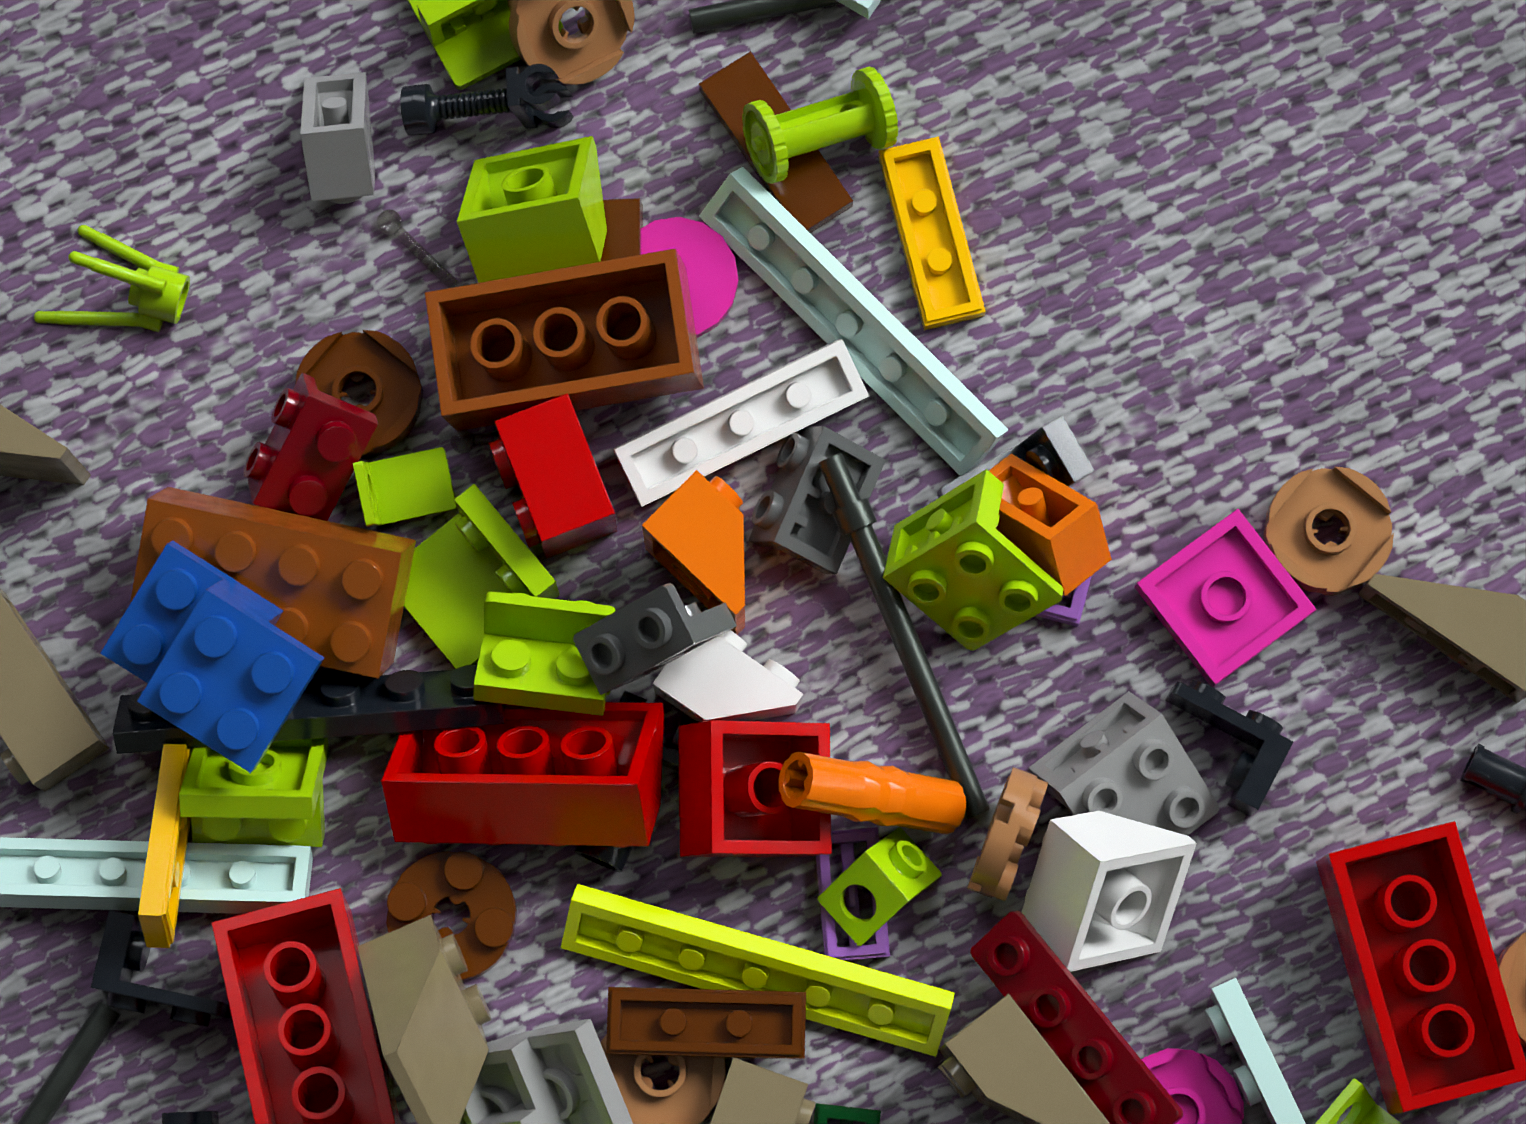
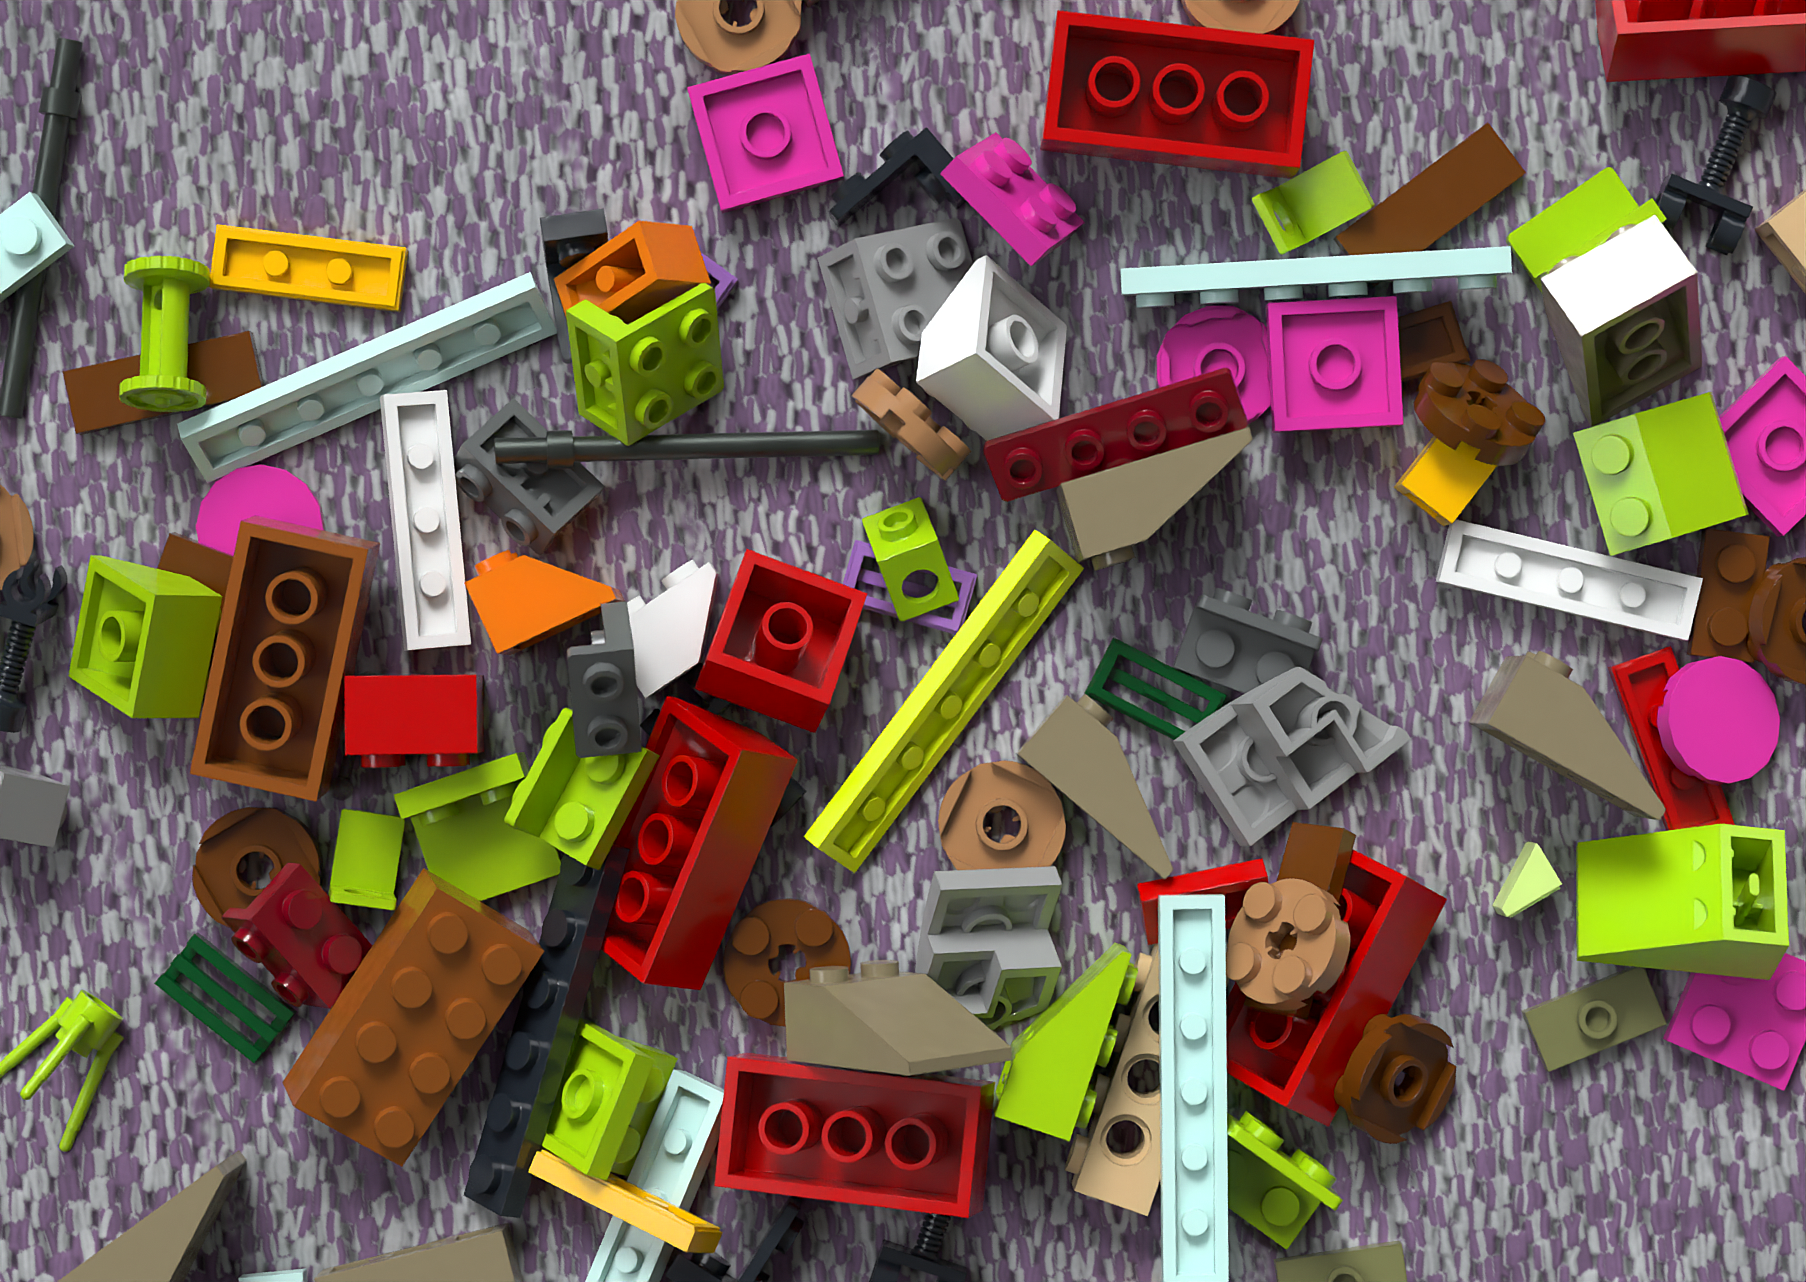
camera: 70 degrees left, 10 degrees up
(211, 656) = (469, 1099): blue bracket -> none
(245, 360) = (183, 964): none -> dark green tile
(390, 224) = (101, 779): clear smoke hinge -> none
(706, 1023) = (976, 766): reddish brown tile -> none
(871, 793) = (826, 535): orange axle -> none
(1261, 849) = (1013, 197): none -> dark pink plate

